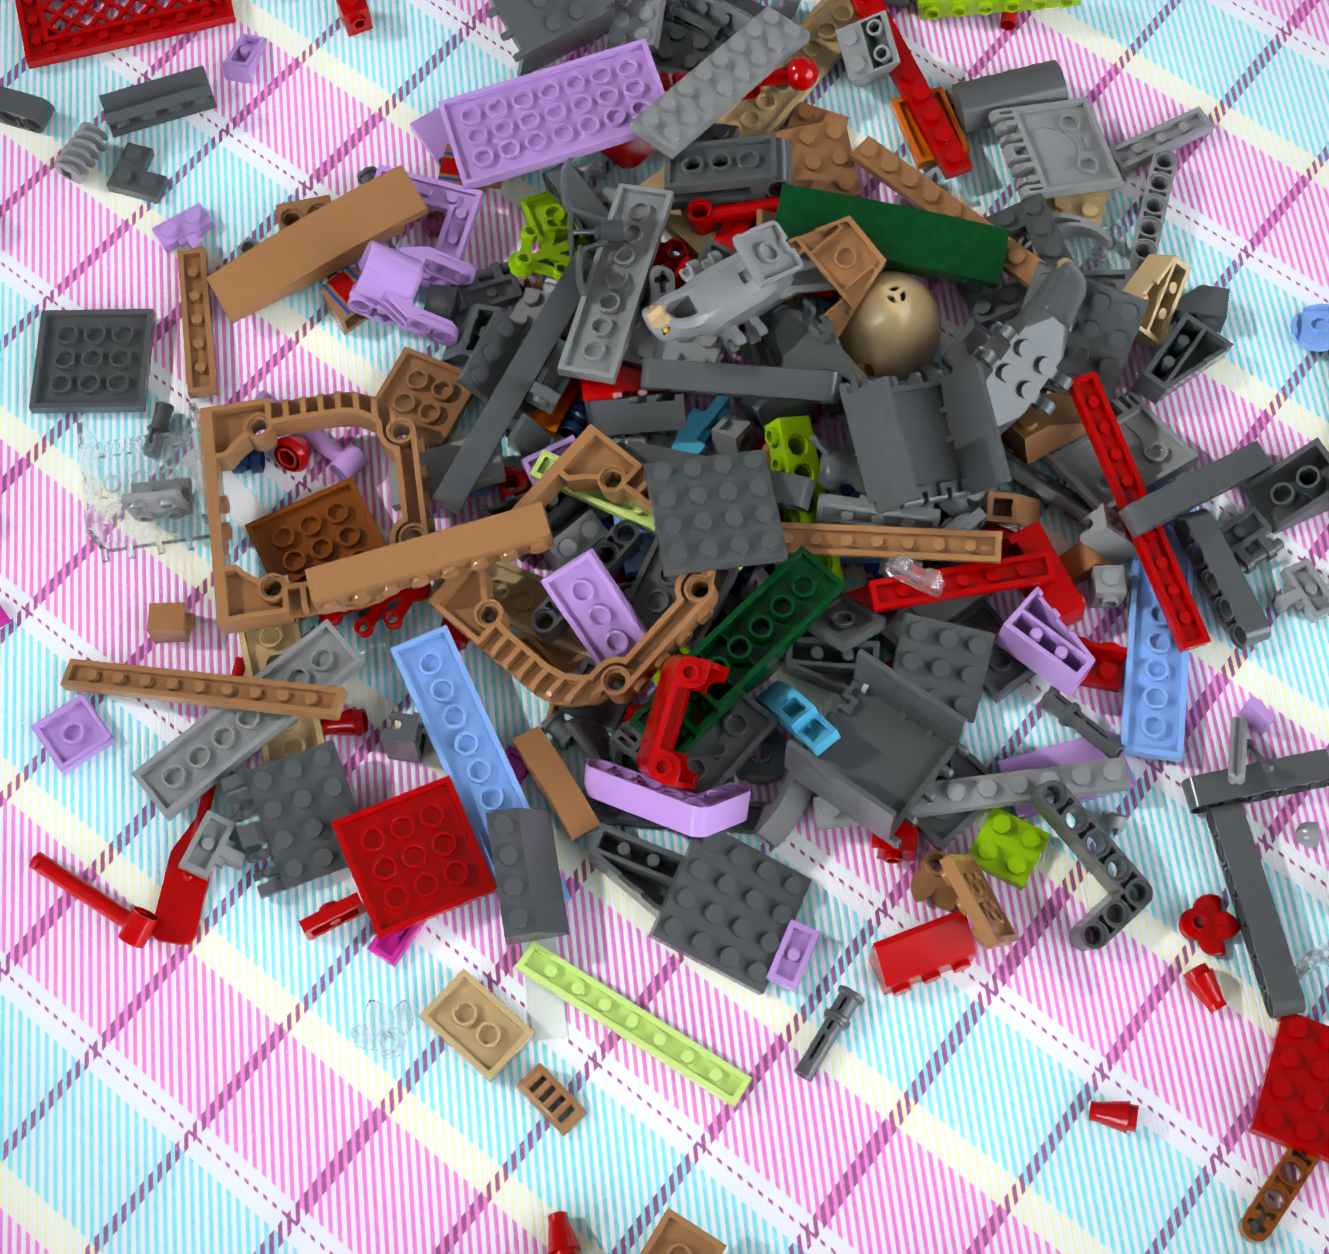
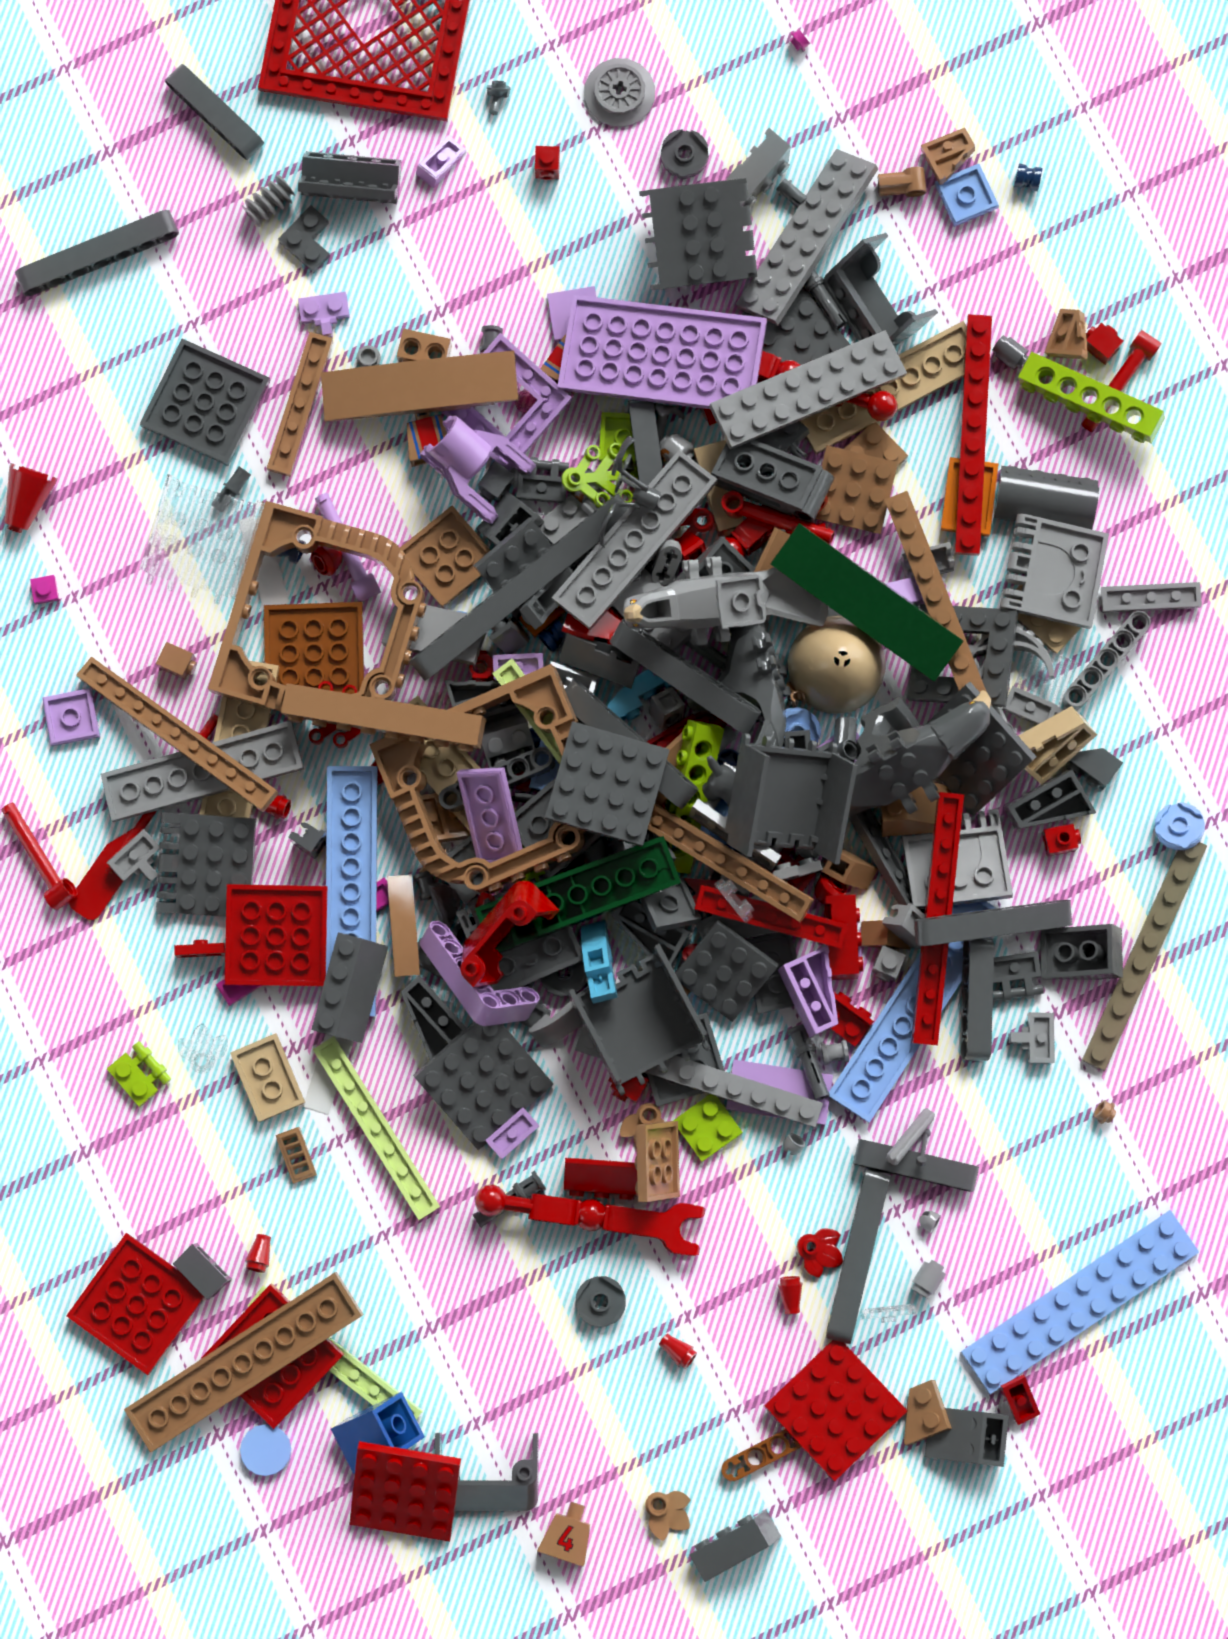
camera: 25 degrees right, 15 degrees up
(159, 499) = (211, 554): light grey bracket -> none
(317, 1103) = (133, 1079): none -> lime plate
(846, 261) = (815, 609): medium nougat wing -> none
(868, 49) = (948, 406): light grey slope -> none
(936, 1002) = (593, 1215): none -> red piece
(1009, 1088) = (614, 1297): none -> dark grey plate
(1097, 864) = (761, 1170): dark grey beam -> none
(1102, 703) = (834, 1052): none -> light grey bush
(1209, 391) = (1061, 839): none -> red brick
(1257, 715) = (943, 1115): lavender tile -> none

